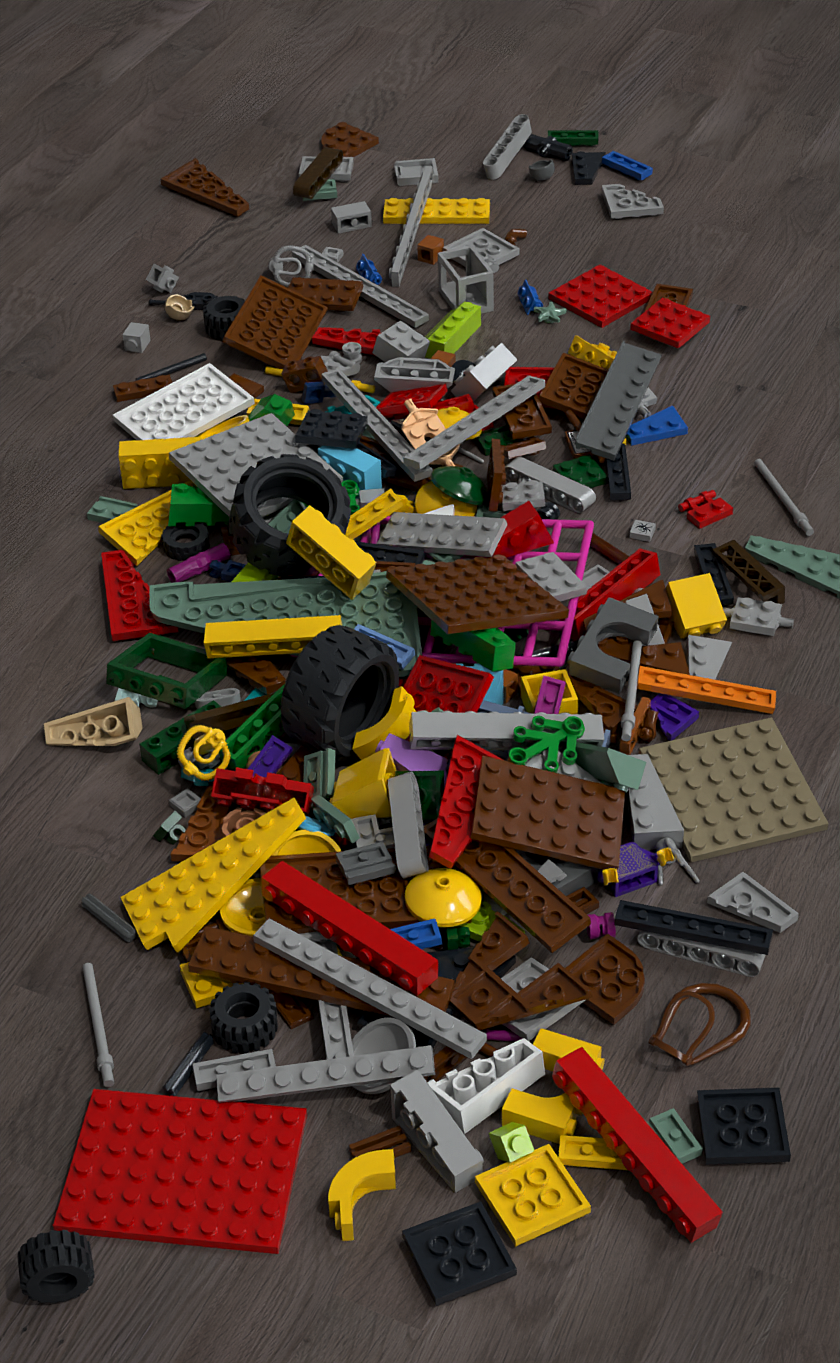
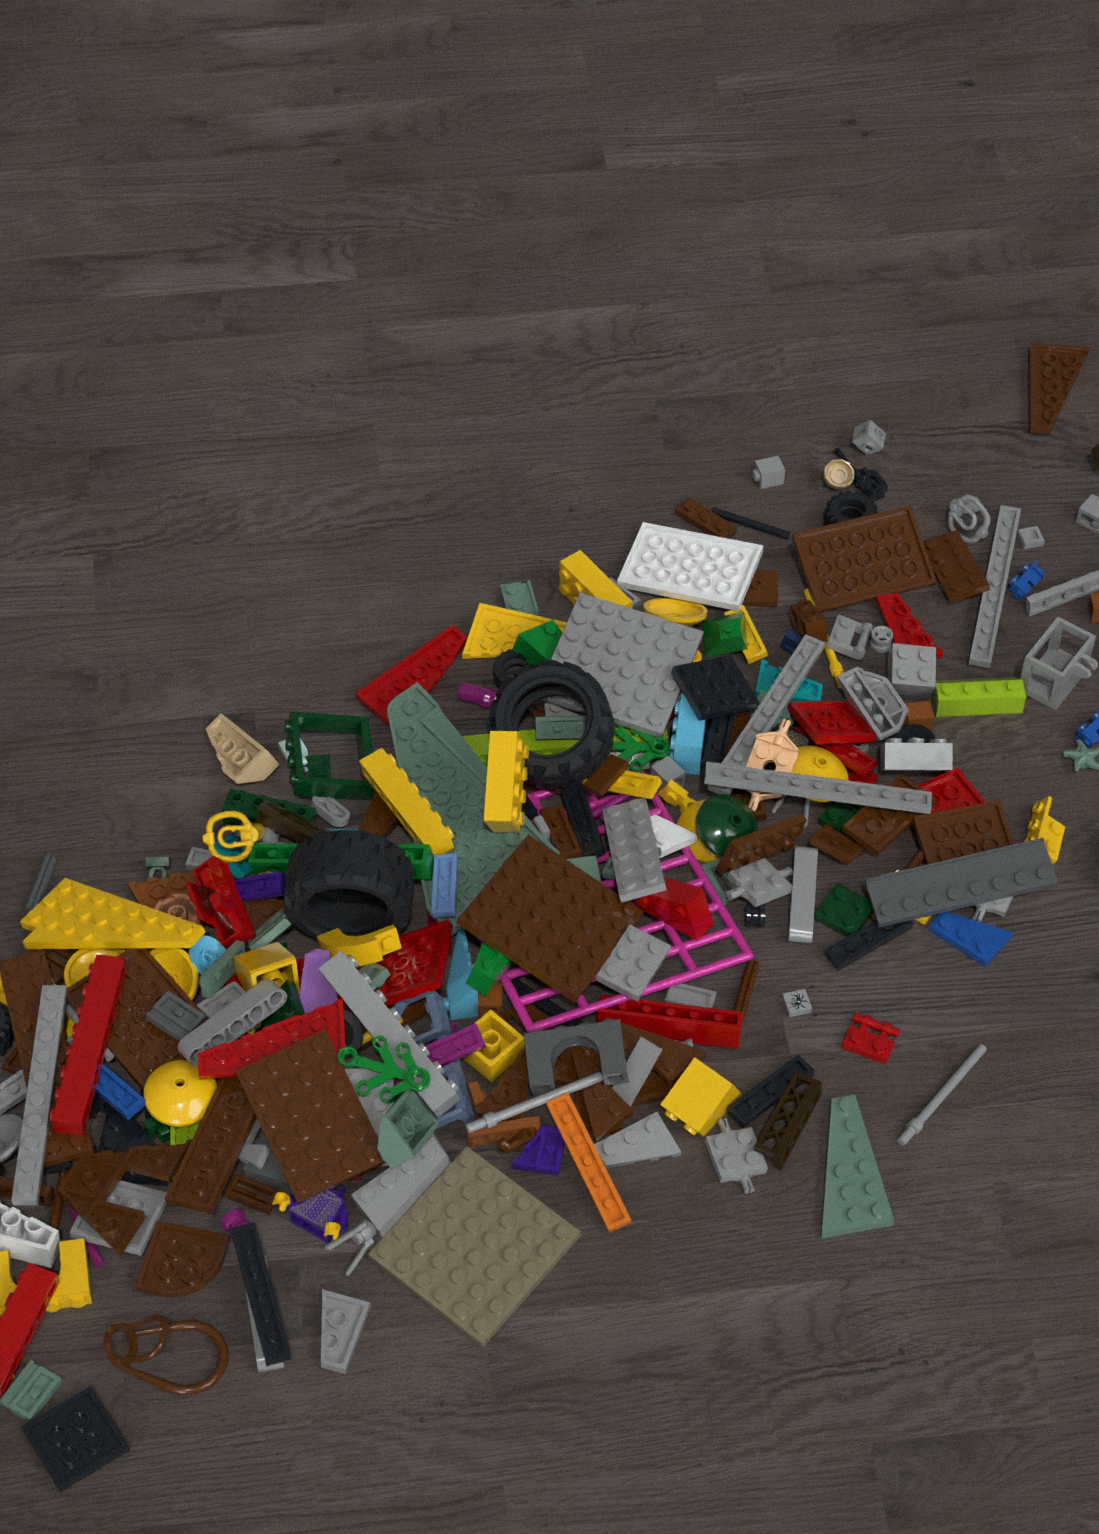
camera: 55 degrees right, 10 degrees up
(357, 524) = (606, 775): none -> reddish brown tile

